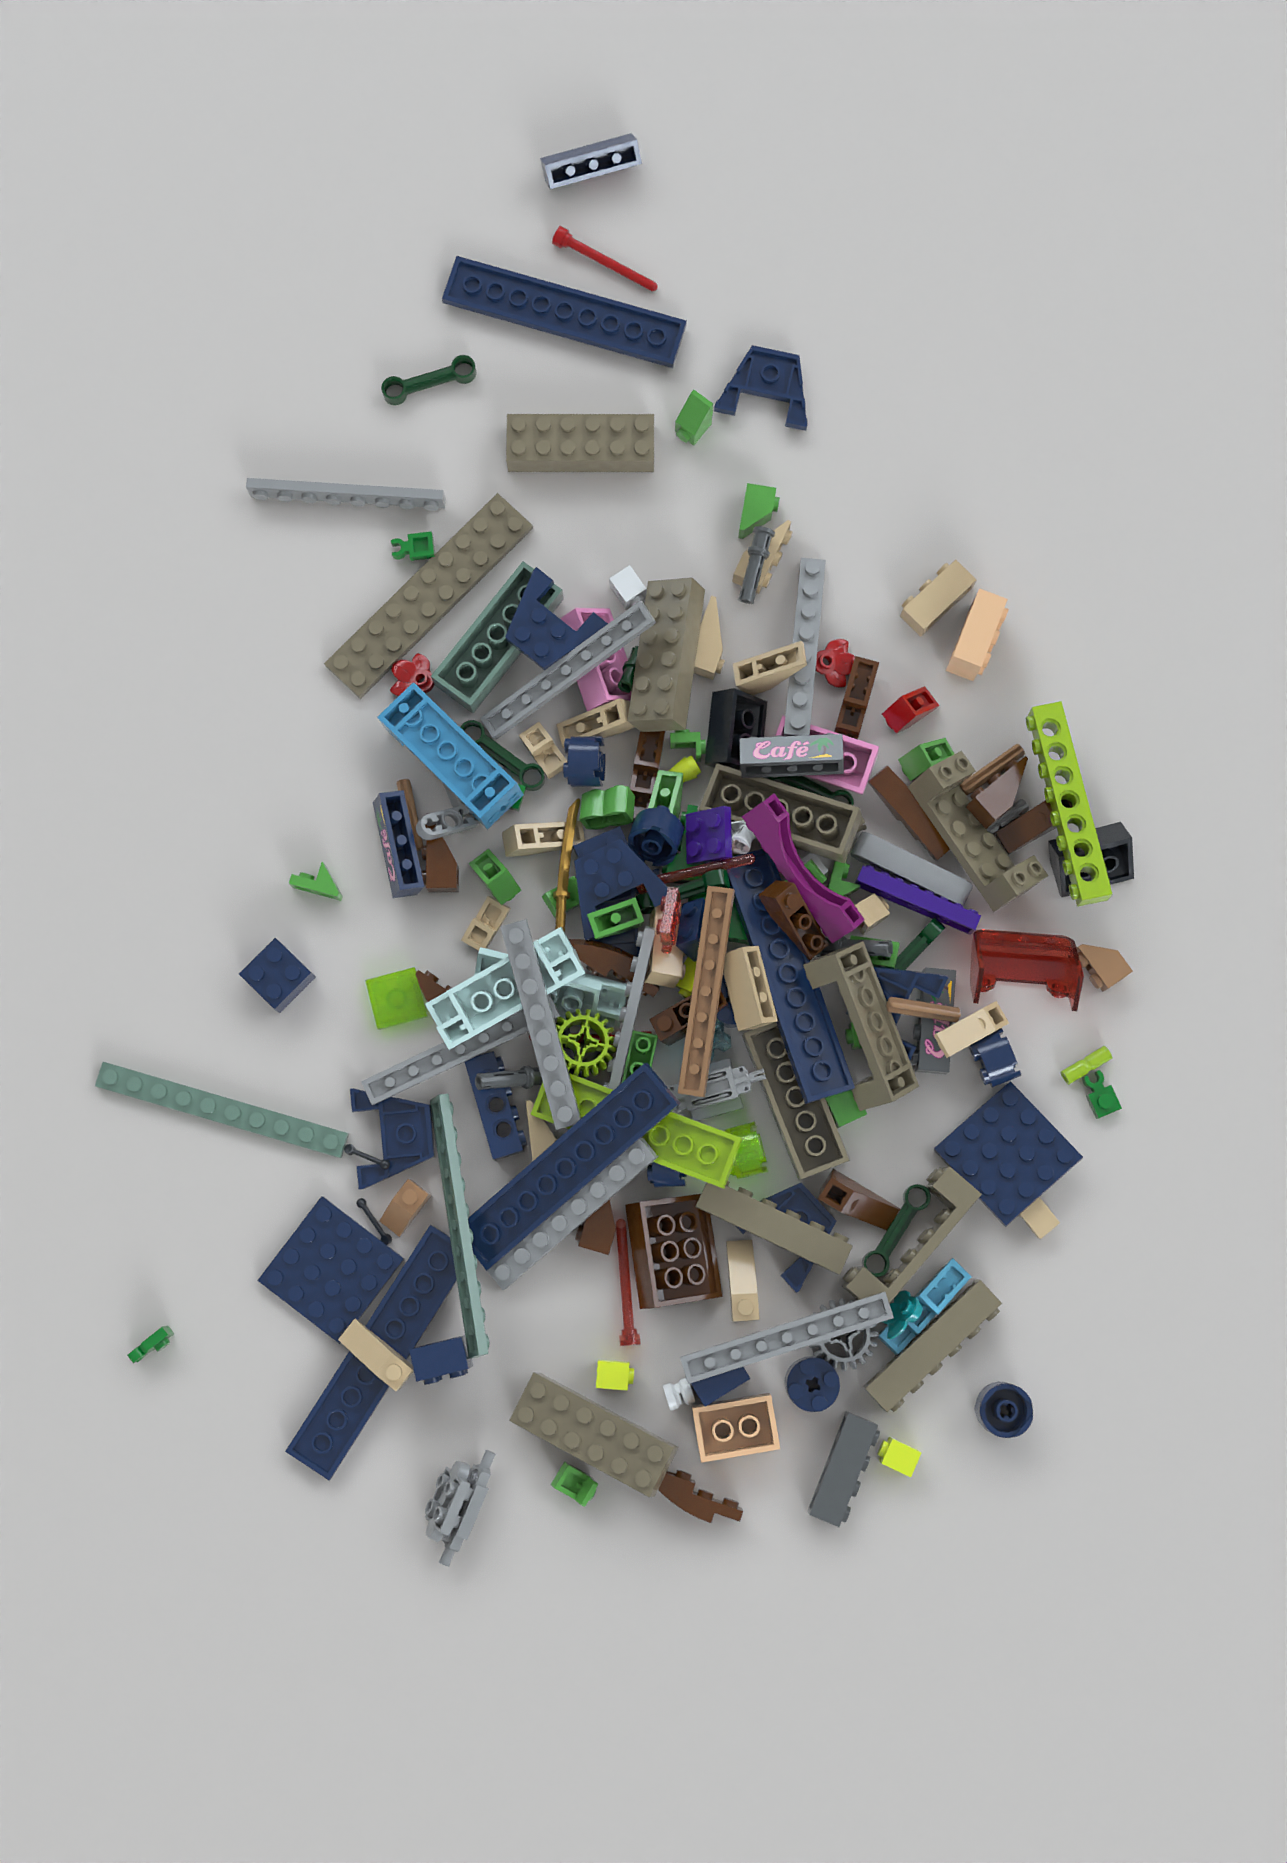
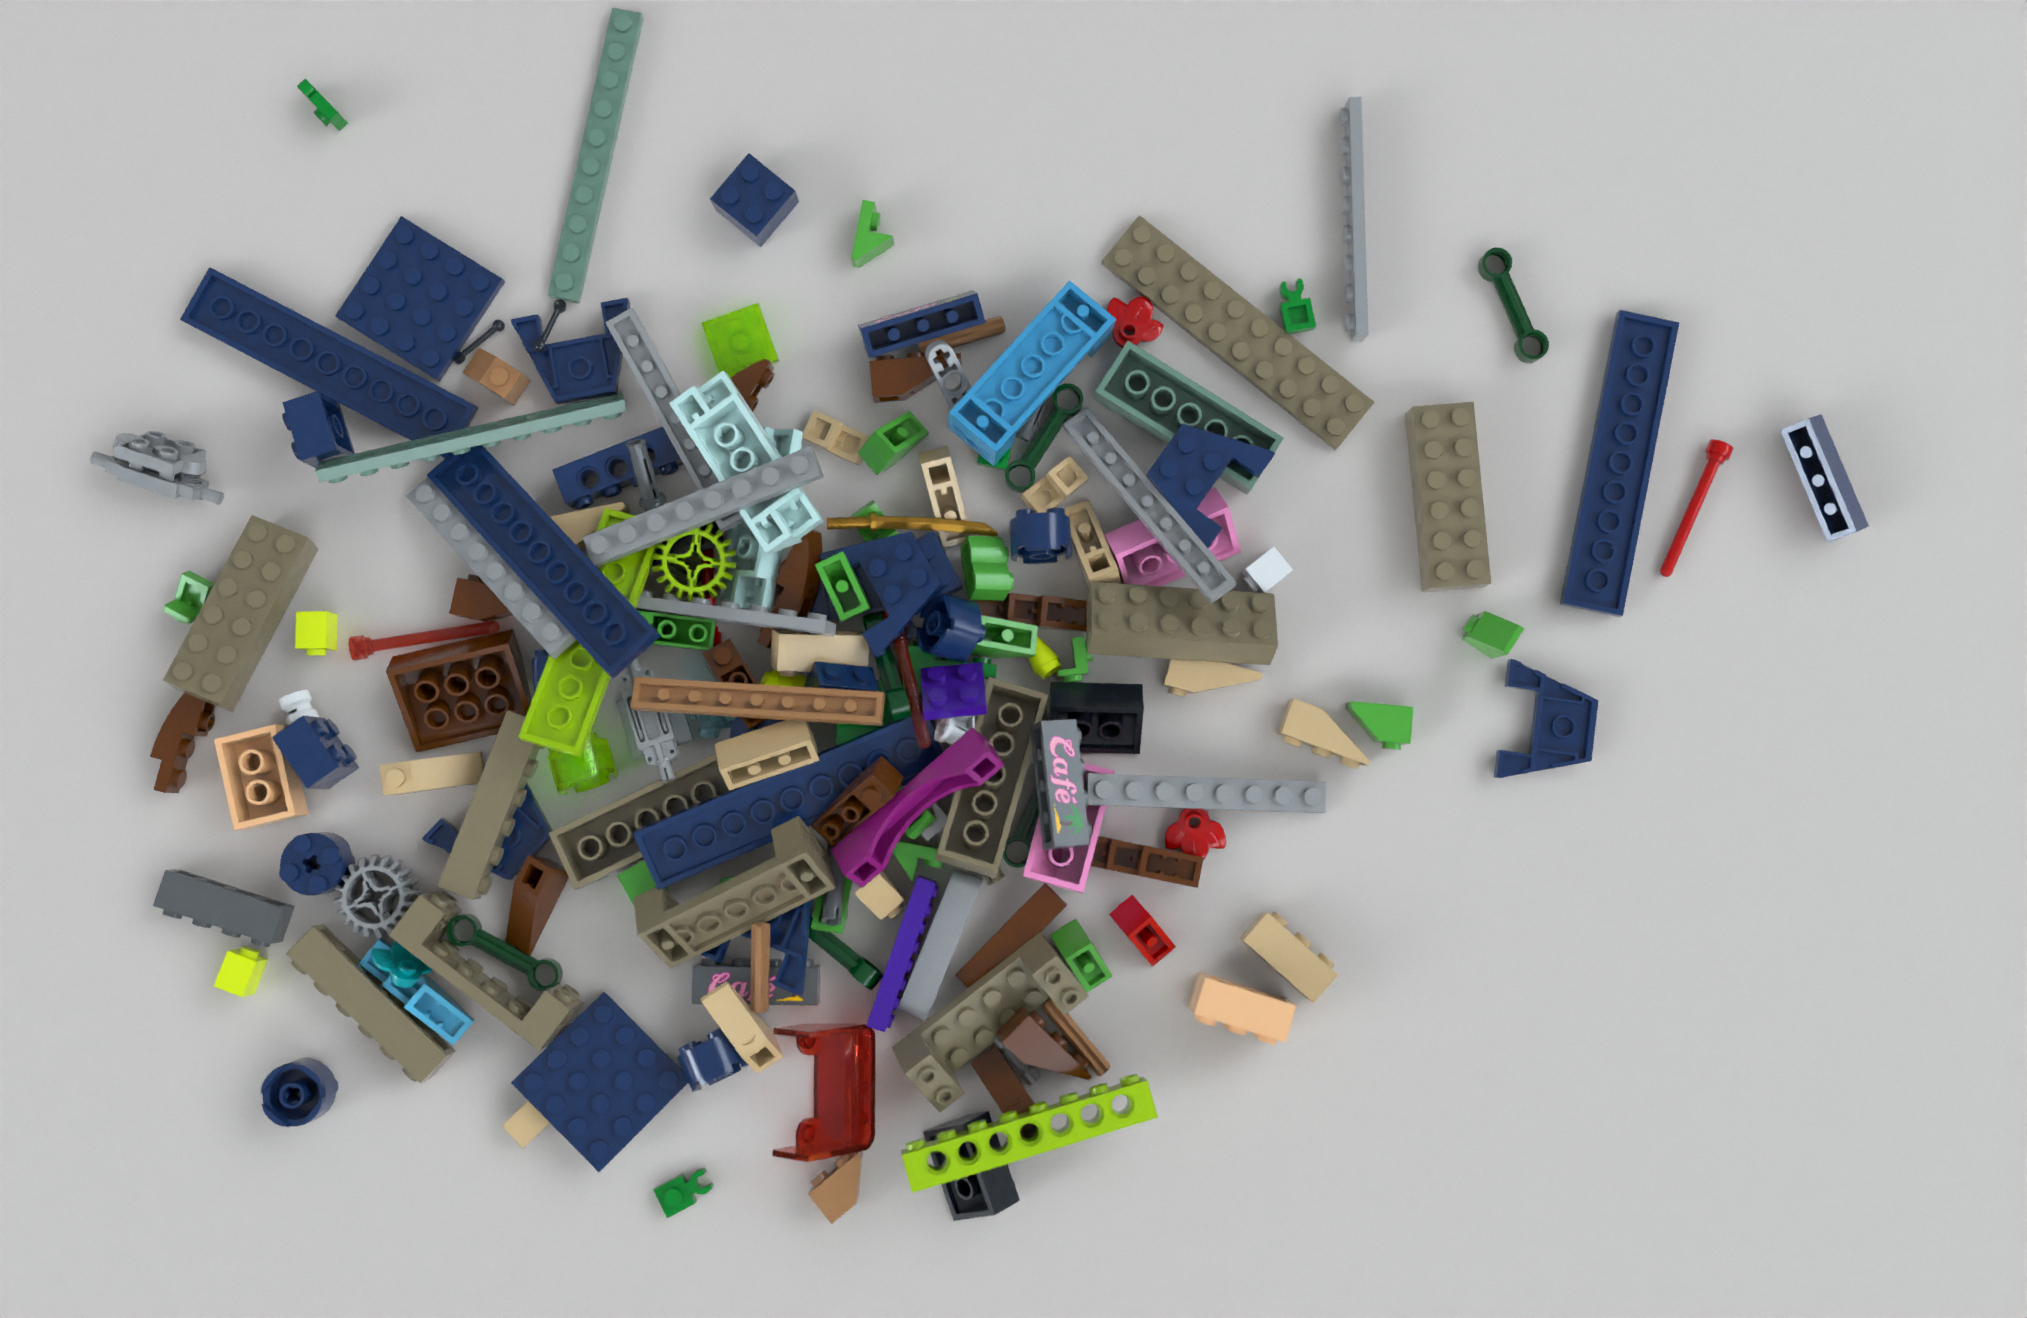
camera: 80 degrees right, 5 degrees up
(377, 1355) = (318, 357): tan slope -> none
(626, 681) = (1145, 577): dark green pin -> none
(671, 916) = (851, 652): clear red plate -> none
(758, 554) = (1319, 726): dark grey pin -> none
(769, 669) = (1173, 750): tan slope -> none
(786, 1337) = (352, 827): light grey plate -> none
(1083, 1066) = (715, 1168): lime piece -> none

